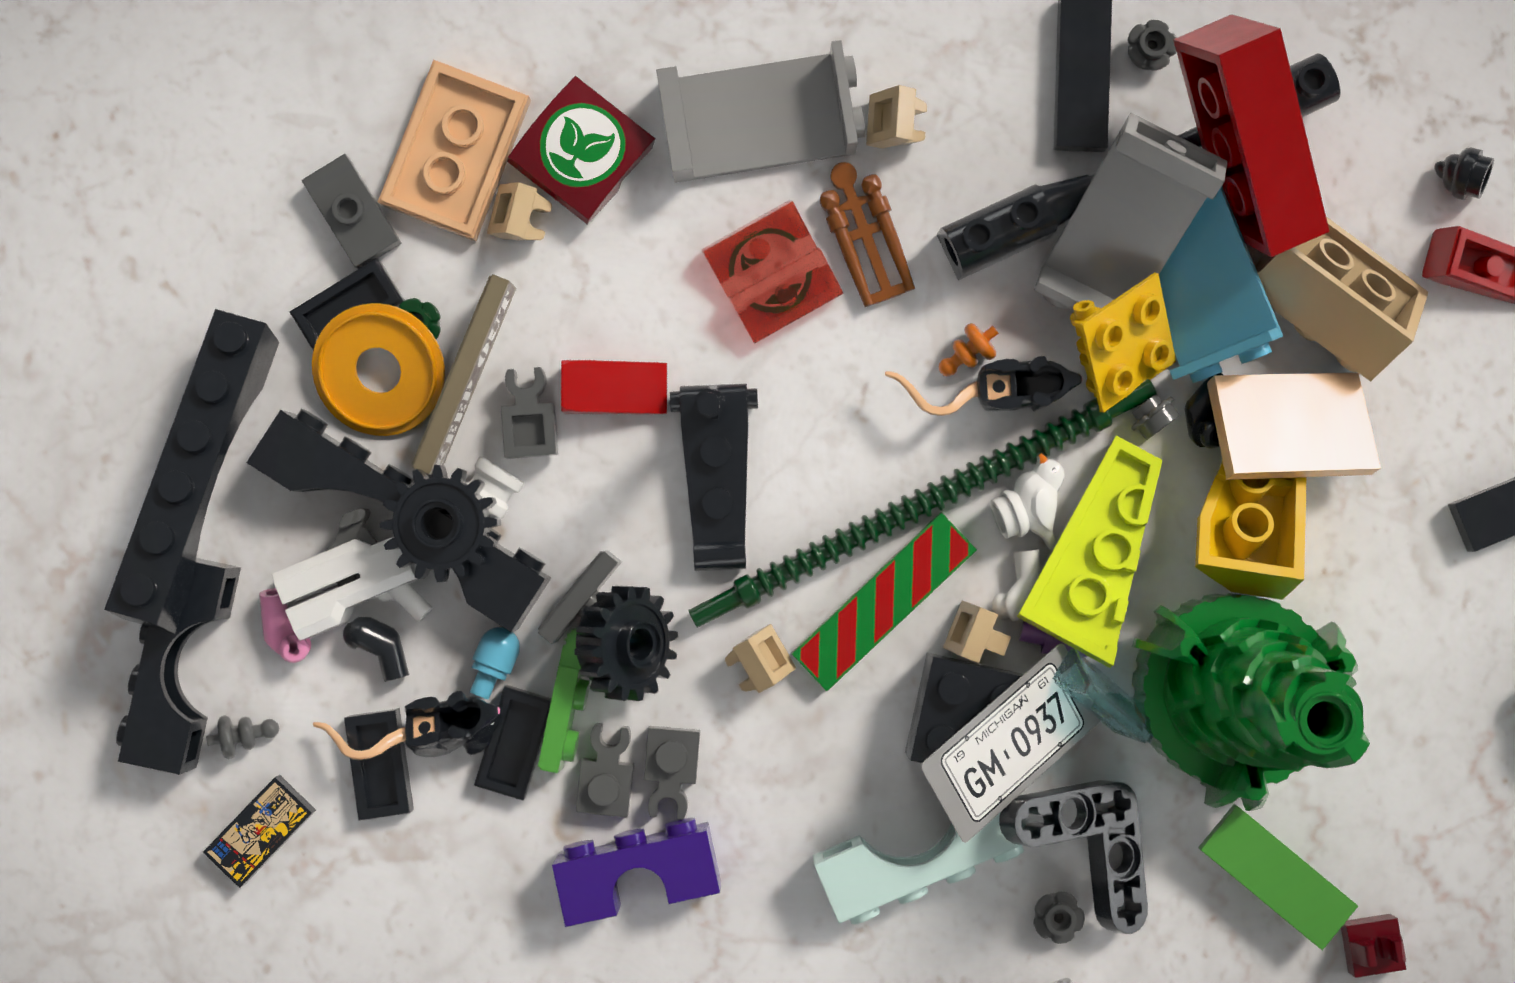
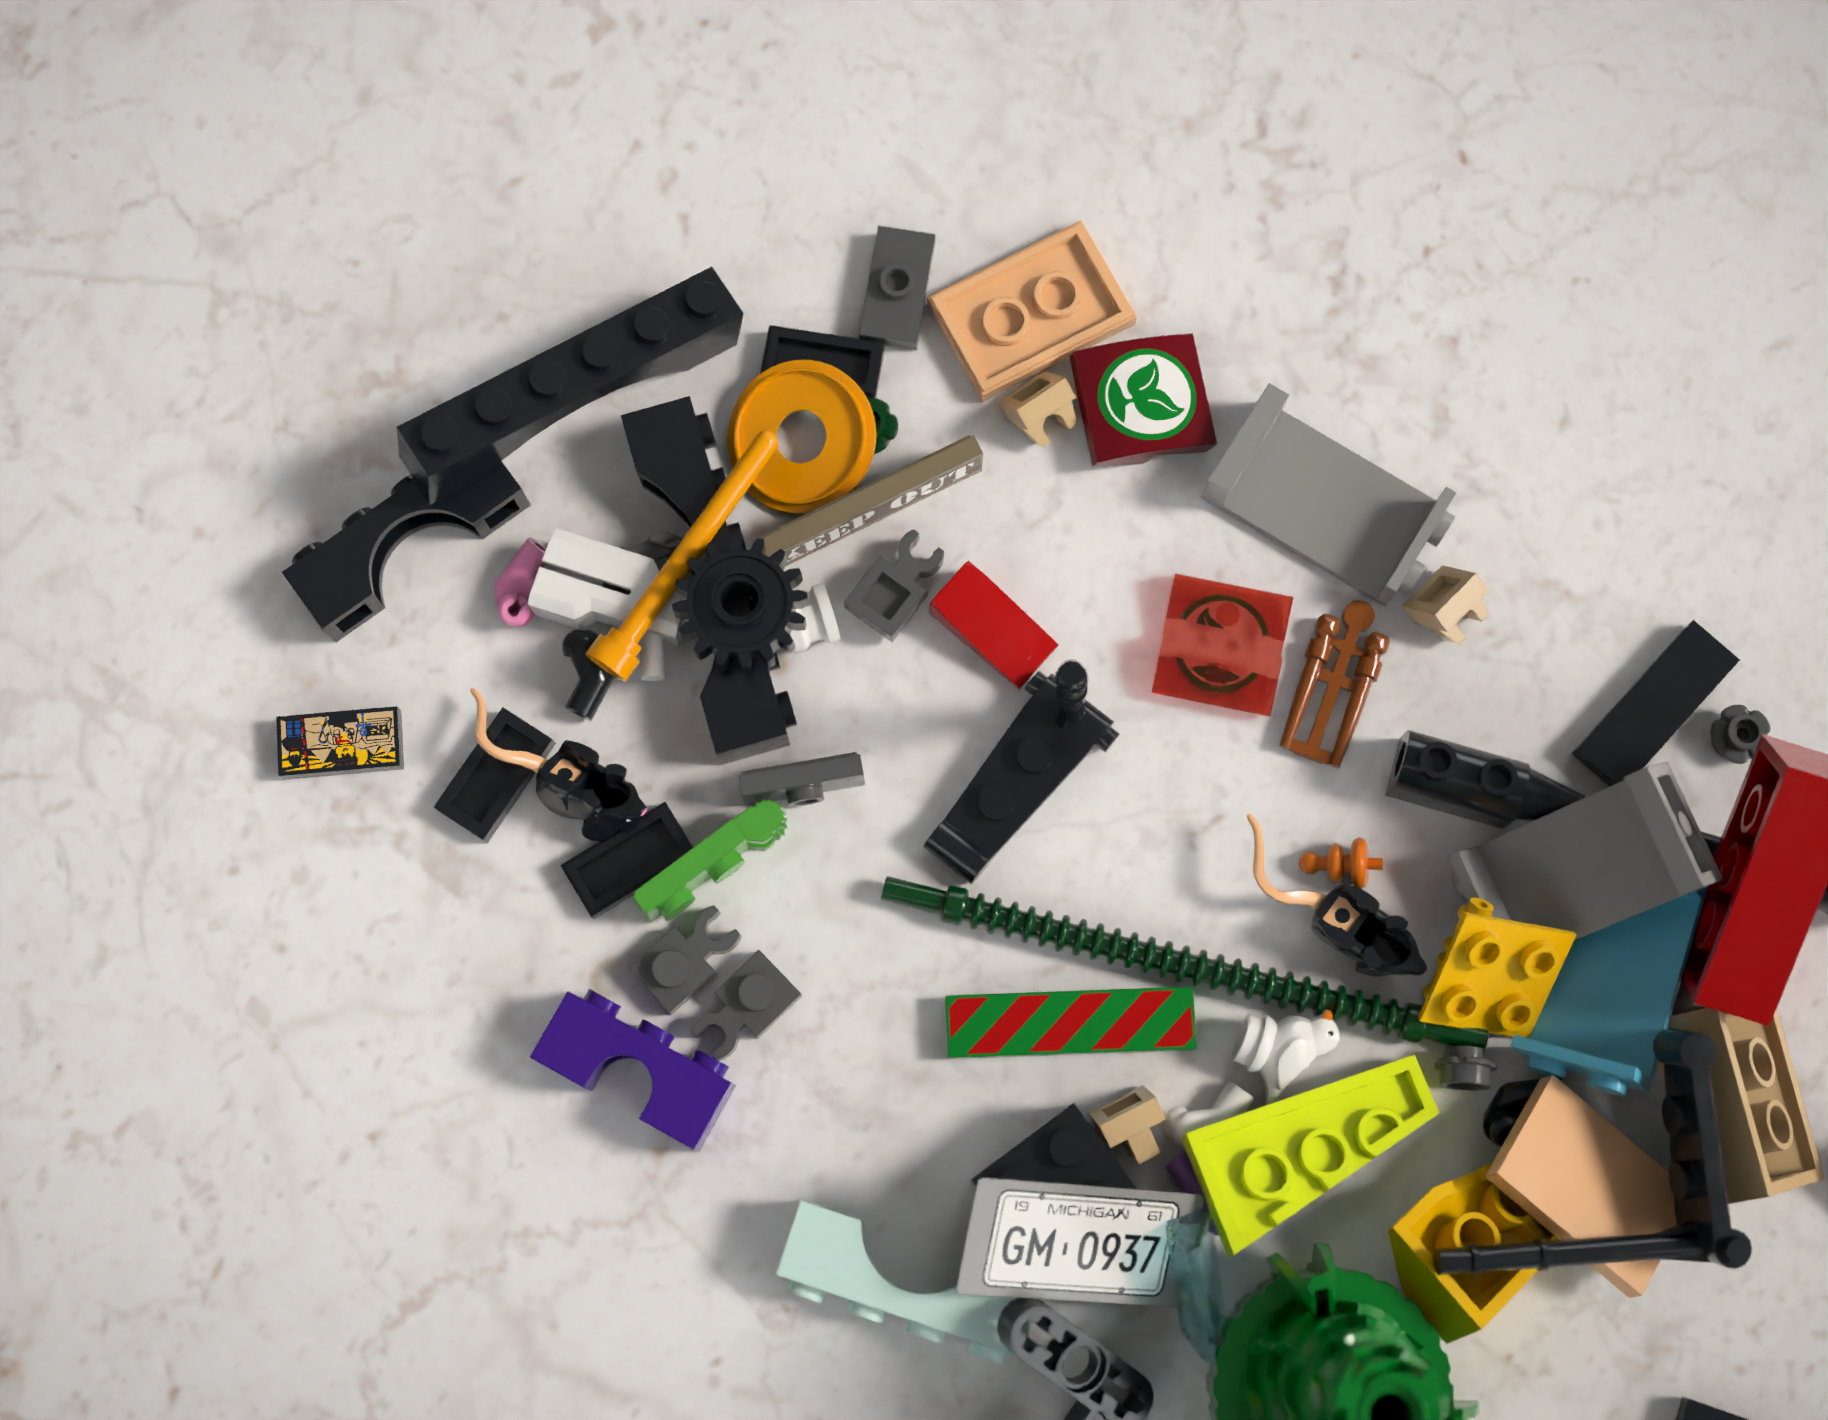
camera: 40 degrees right, 10 degrees down
(244, 733) = (406, 647): dark grey hair -> none
(386, 619) = (619, 648): none -> light orange piece
(494, 659) = (677, 770): medium azure cylinder -> none
(625, 643) = (807, 851): black gear -> none
(762, 658) = (915, 977): tan tile -> none
(1355, 367) = (1694, 1177): none -> black piece

